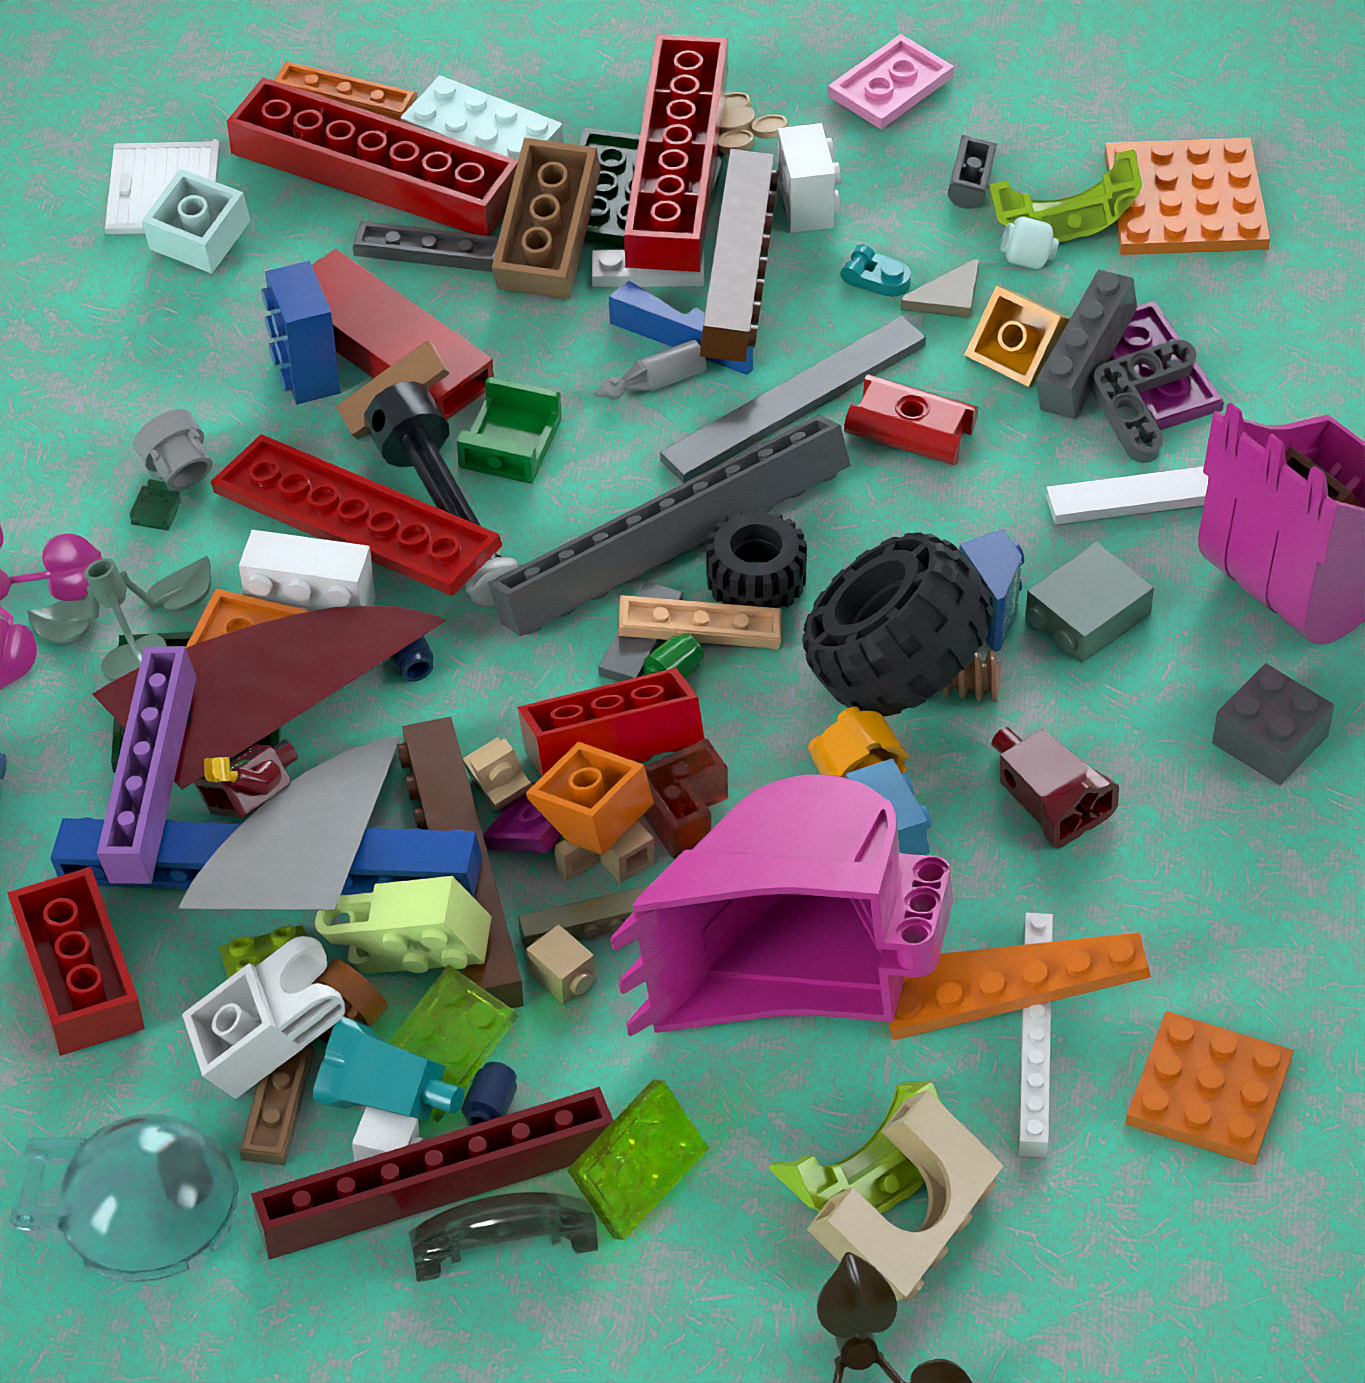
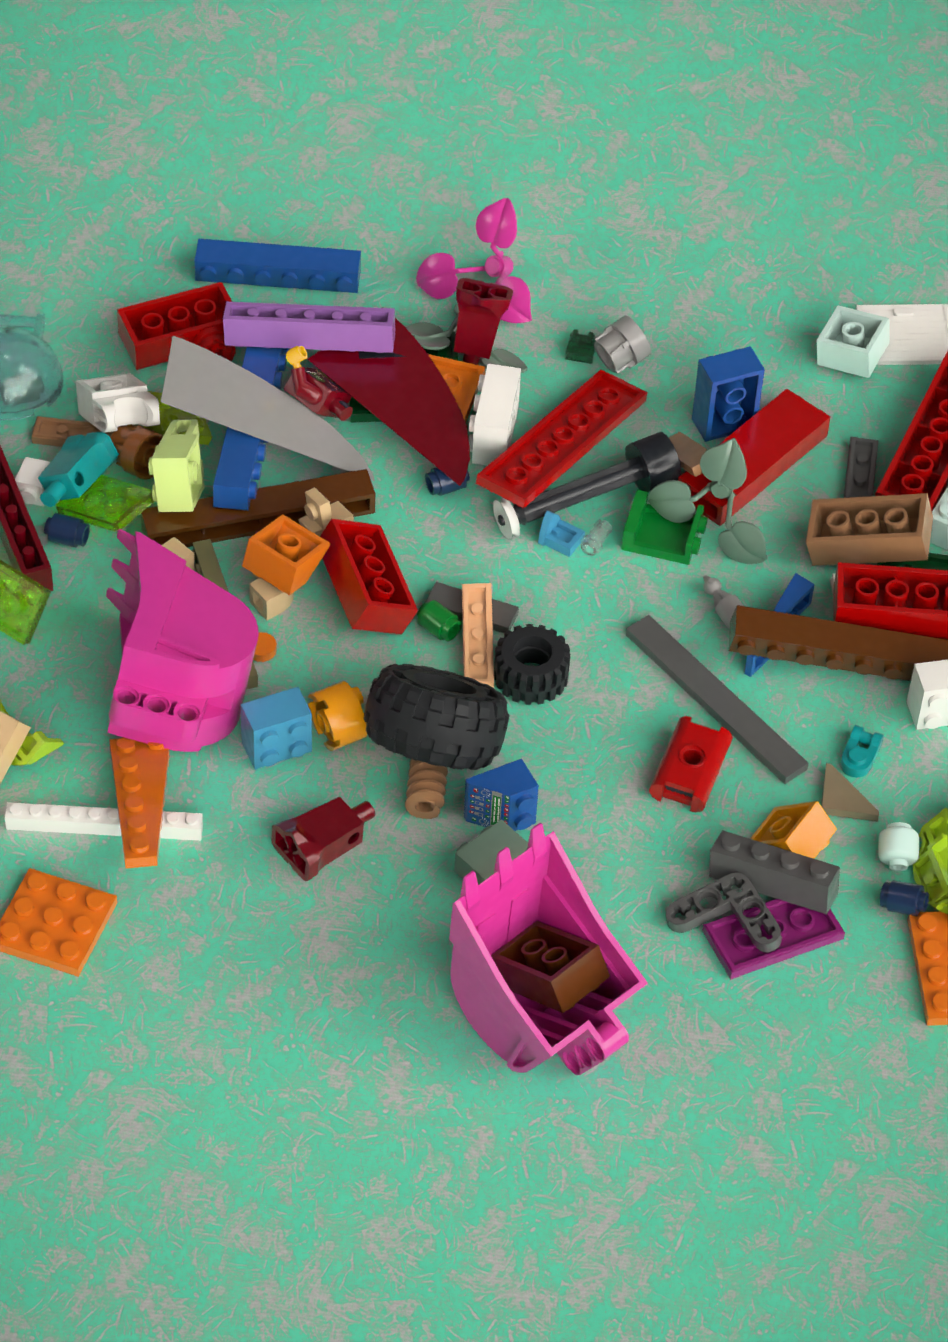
camera: 85 degrees right, 0 degrees up
(127, 917) = (213, 340): none -> red wheel
(144, 573) = (478, 317): none -> dark red piece
(469, 345) = (727, 471): none -> sand green plant
(517, 535) = (559, 534): none -> dark azure tile
(520, 501) = (592, 543): none -> clear pin
(667, 525) = (565, 611): dark grey brick -> none
(682, 791) = (306, 615): clear red brick -> none
(1106, 242) = (904, 897): none -> dark blue brick
(1127, 495) = (632, 927): white tile -> none
(1272, 723) = (379, 975): dark grey brick -> none

